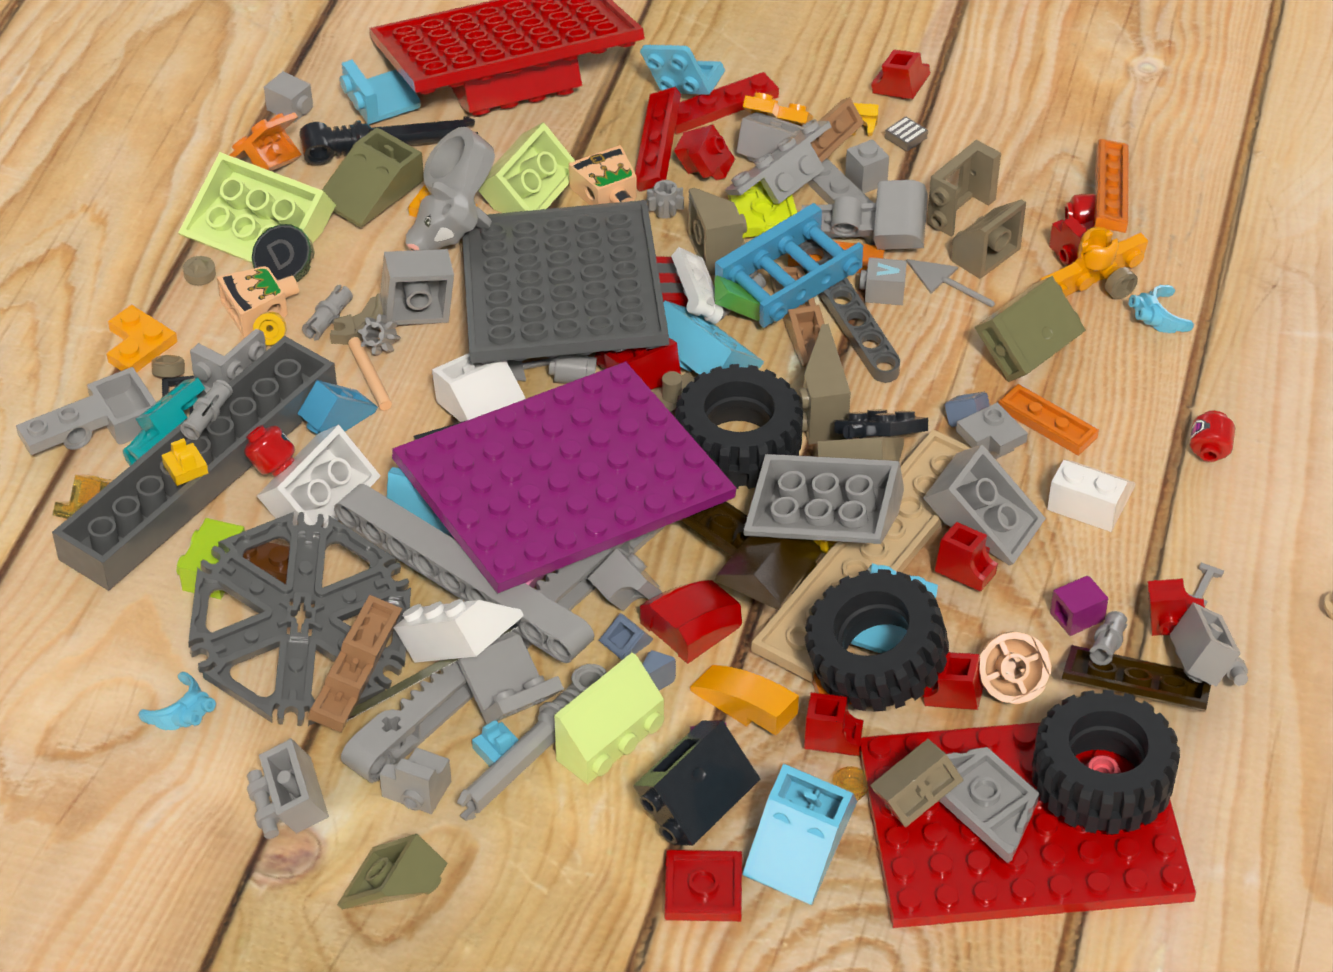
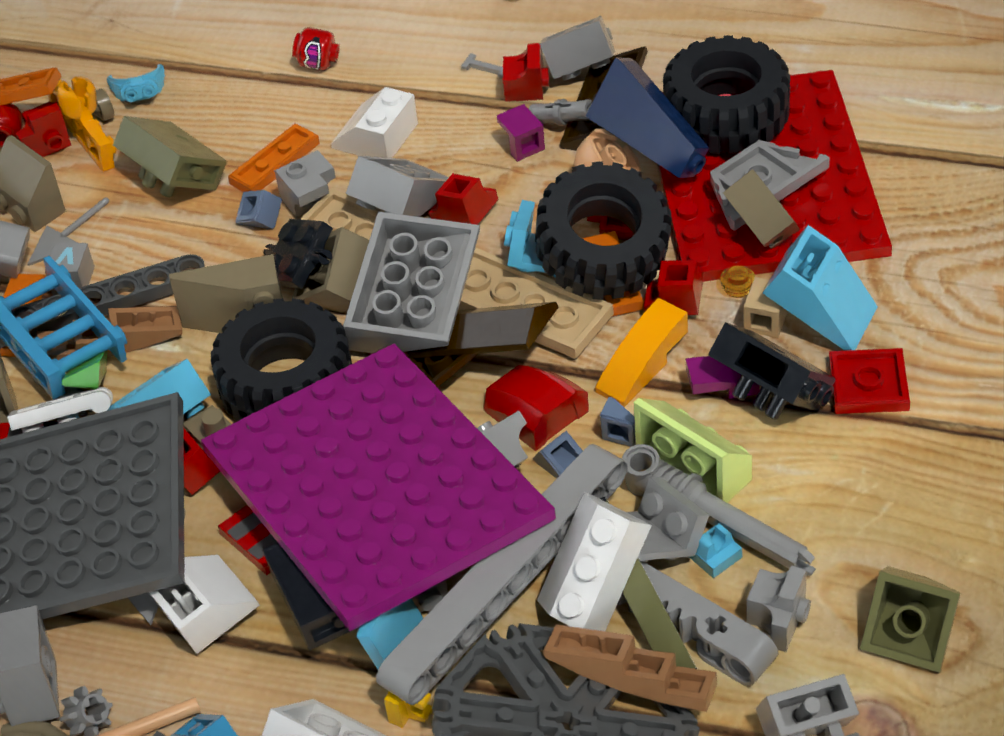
camera: 85 degrees left, 0 degrees up
(1047, 680) = (646, 120): none -> dark blue slope

